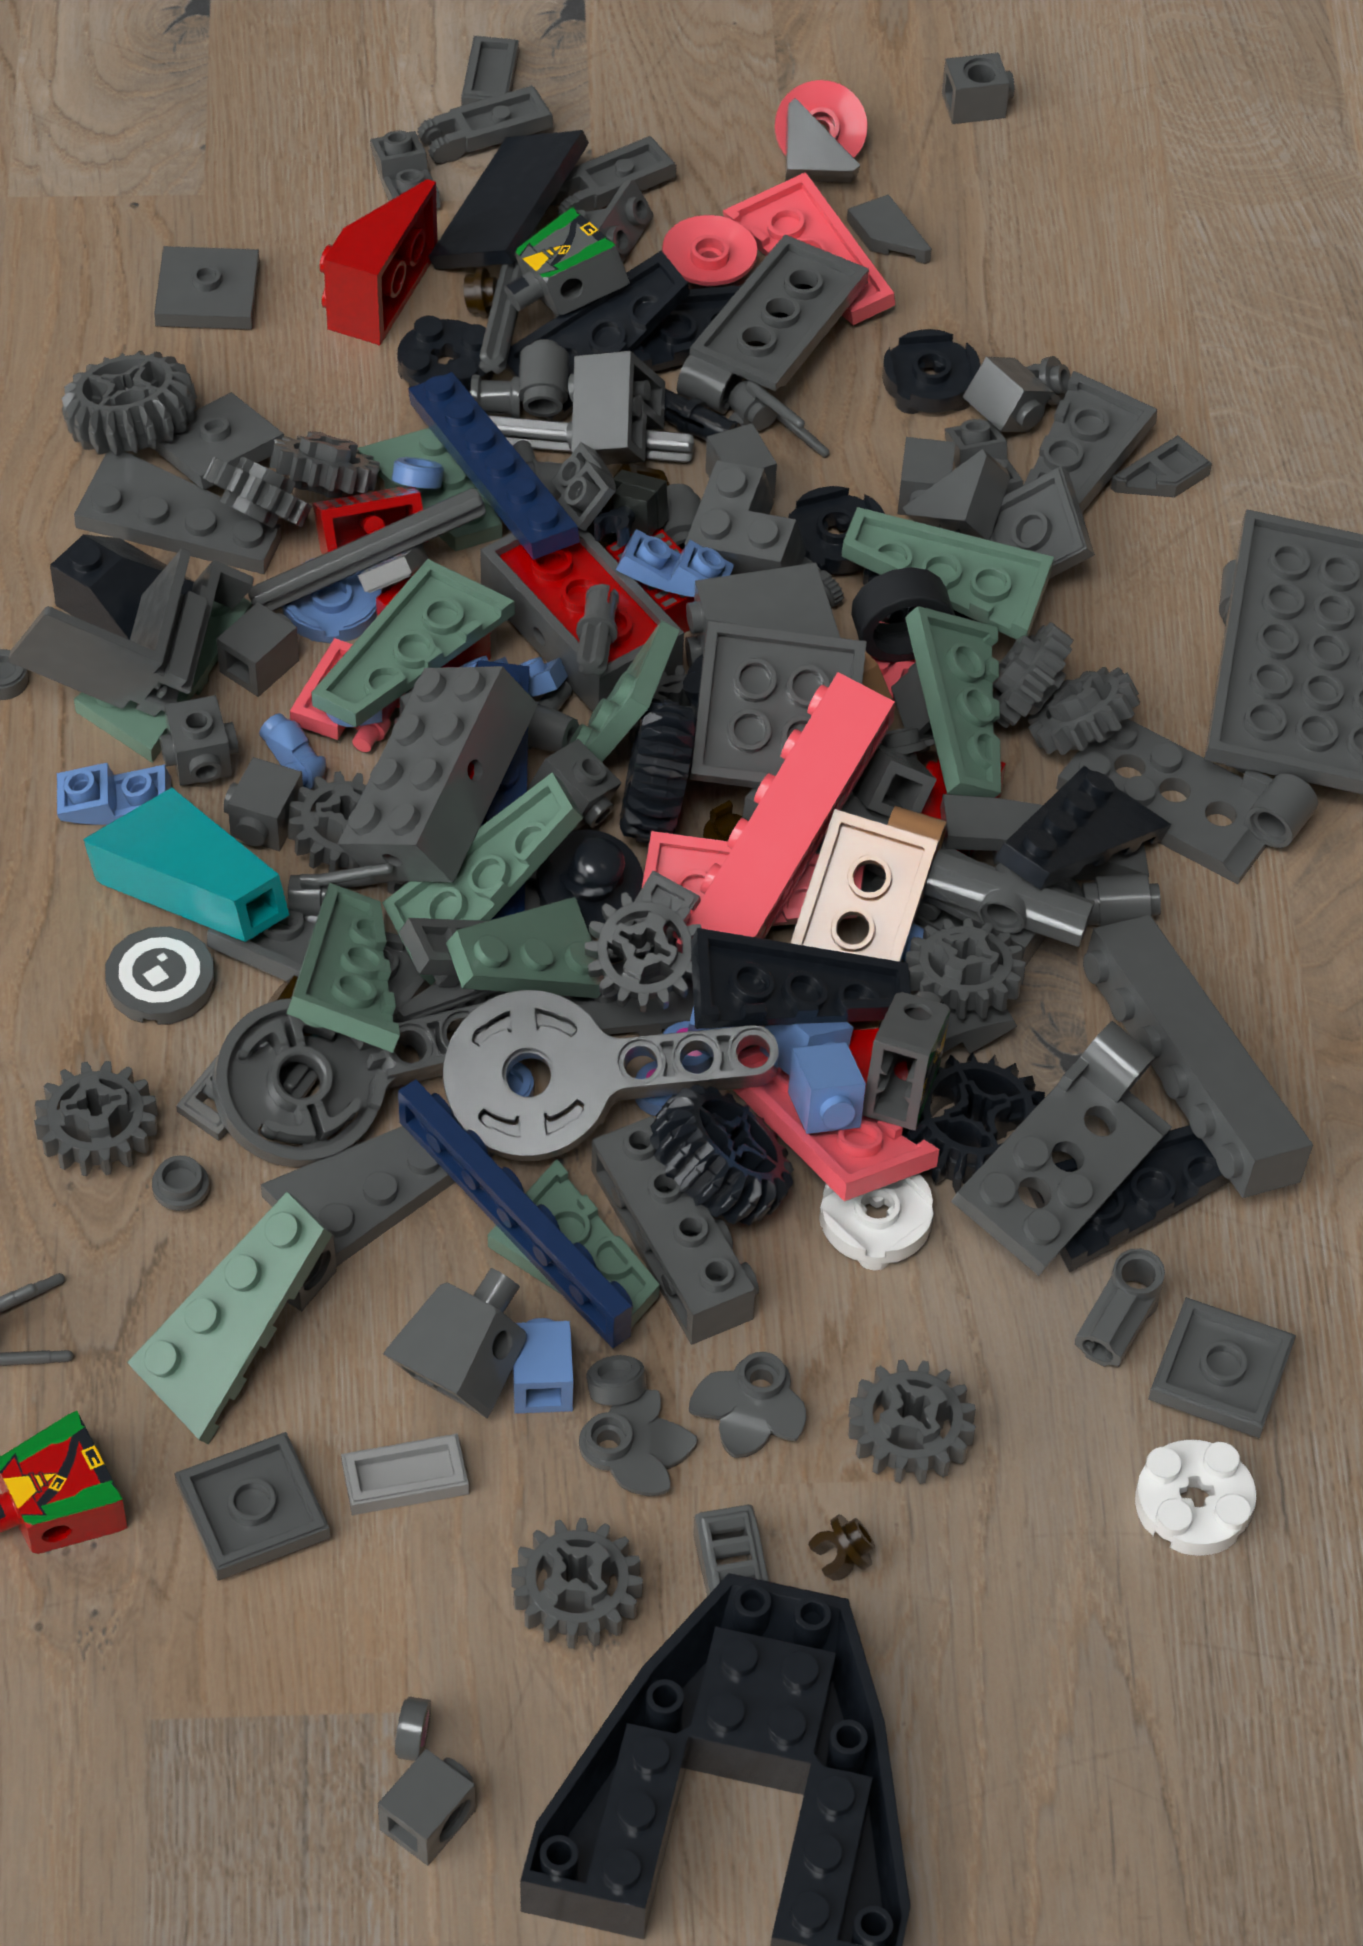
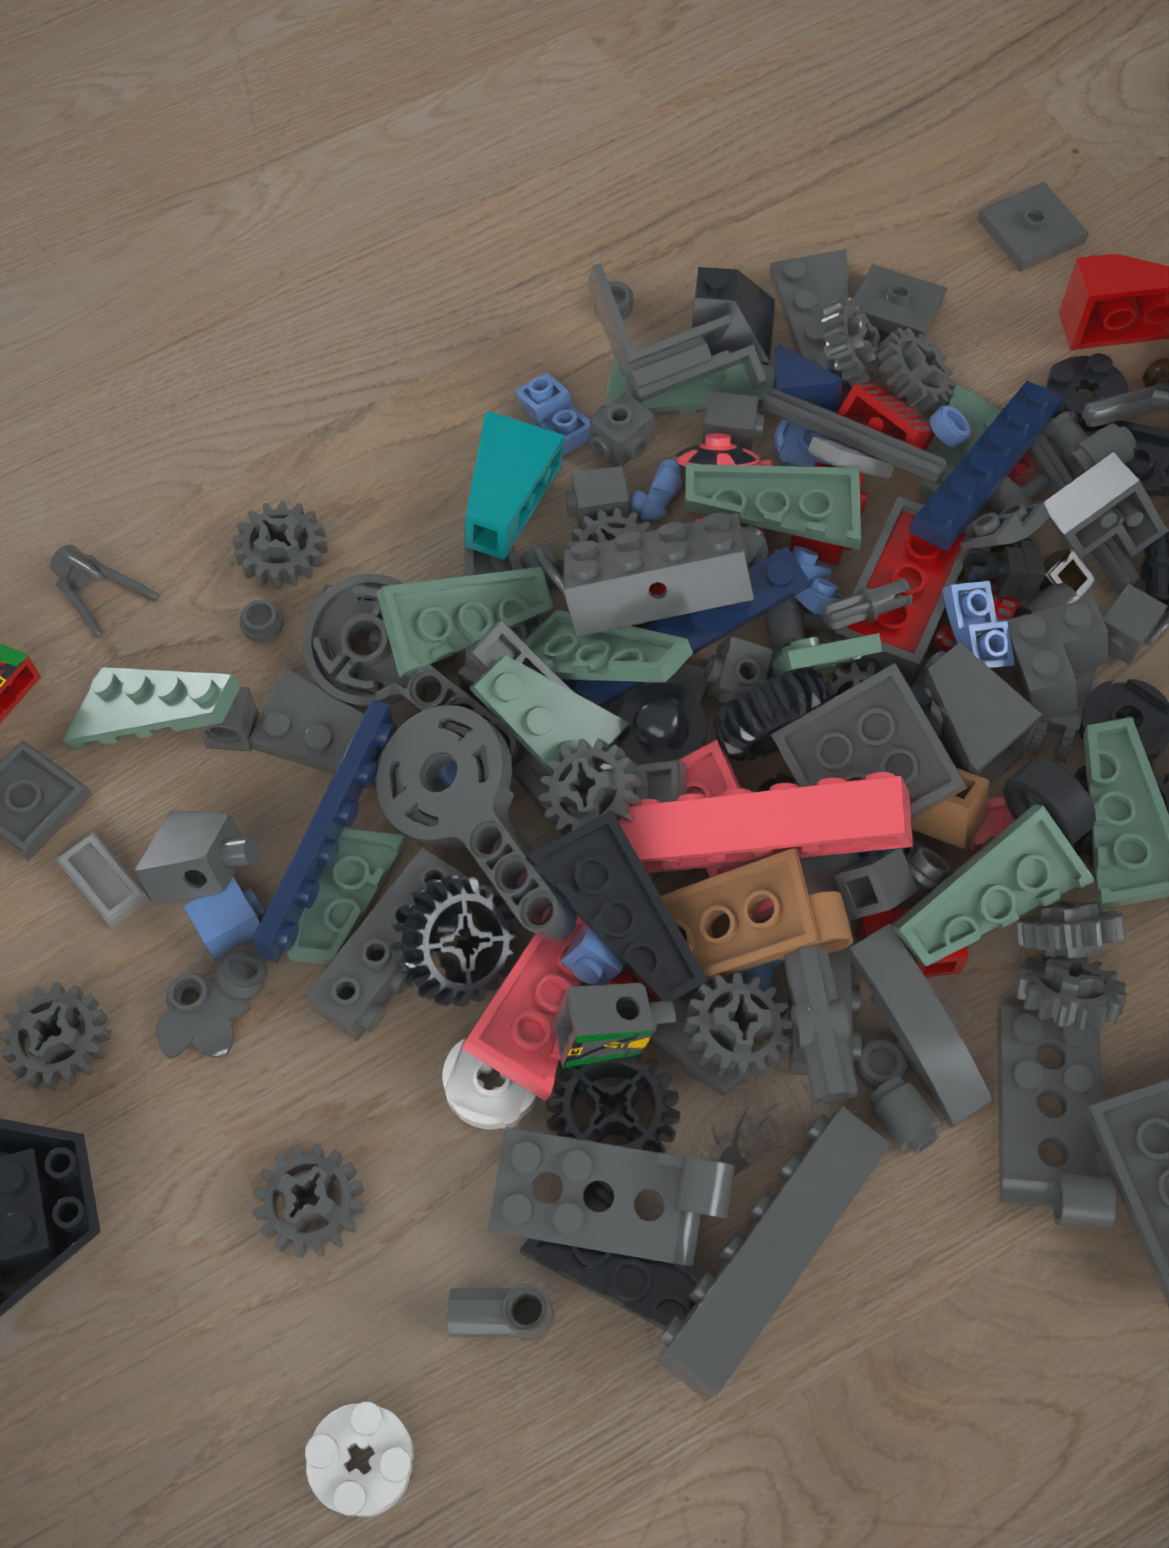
camera: 65 degrees right, 10 degrees up
(129, 403) = (881, 235): dark grey gear -> none
(159, 975) = (424, 518): dark grey tile -> none
(267, 552) = (807, 379): none -> dark blue slope
(296, 677) = (717, 451): none -> dish
(726, 1535) = (144, 1141): dark grey slope -> none
(747, 1411) = (267, 1078): dark grey plate -> none
(826, 1087) = (544, 980): medium blue brick -> none
(852, 1546) = (178, 1208): dark brown plate -> none
(1077, 828) = (929, 1043): black wing -> none
(1222, 1367) = (491, 1423): dark grey plate -> none

